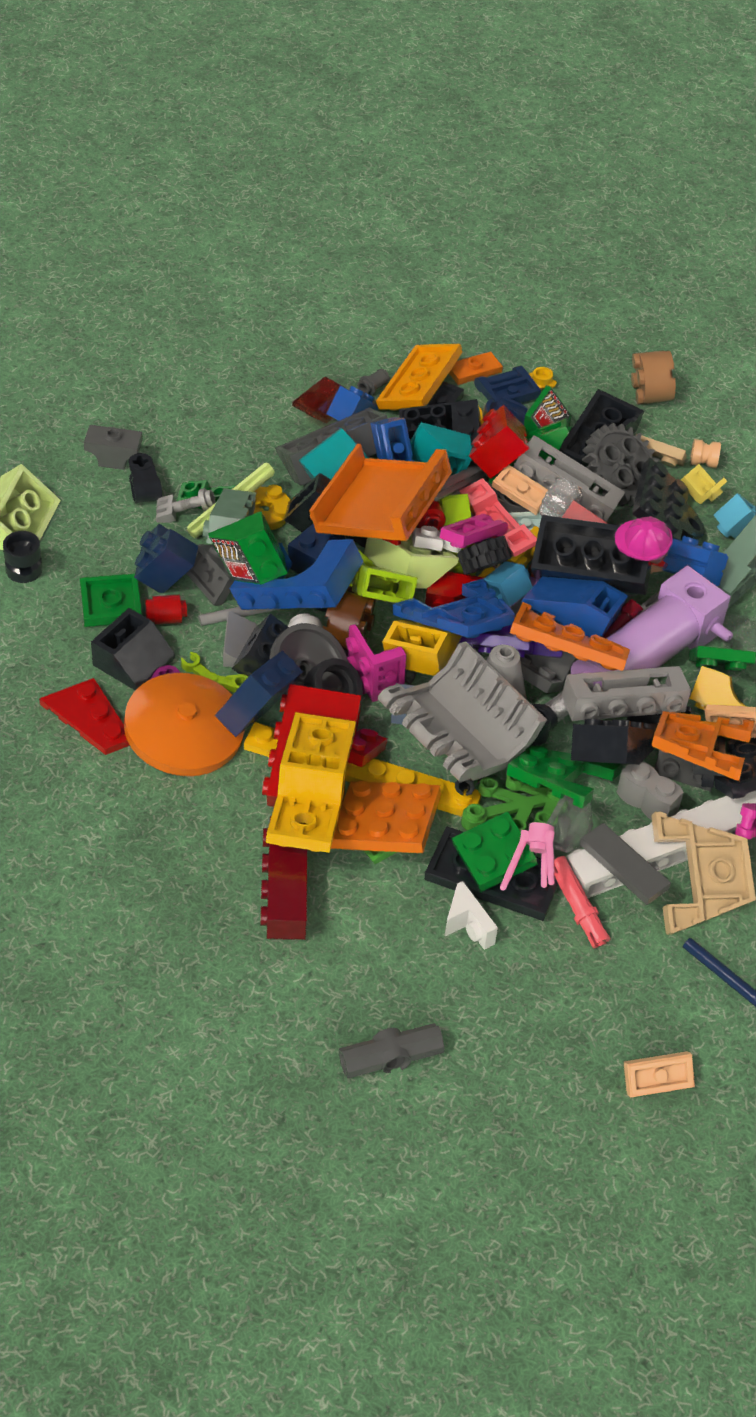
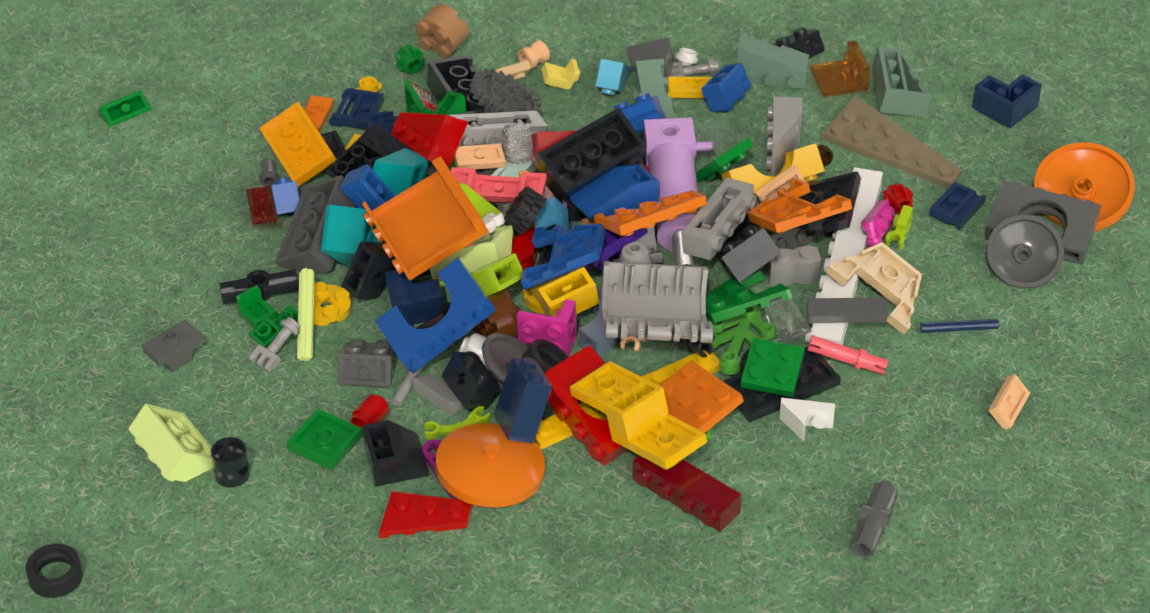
camera: 45 degrees left, 5 degrees down
(144, 479) = (226, 352): black piece -> none
(164, 558) = (327, 382): dark blue brick -> none
(210, 465) = (253, 307): none -> green bracket
(229, 508) = (339, 321): sand green wedge -> none
(233, 452) = (269, 284): none -> black piece
(250, 550) = (401, 319): green slope -> none
(350, 260) = (124, 108): none -> green slope
(473, 530) = (502, 200): dark pink plate -> none
(540, 838) = (797, 333): bright pink plant -> none
(601, 378) = (409, 59): none -> green gear
(644, 539) = (620, 116): dark pink piece -> none
(666, 500) = (564, 98): black plate -> none

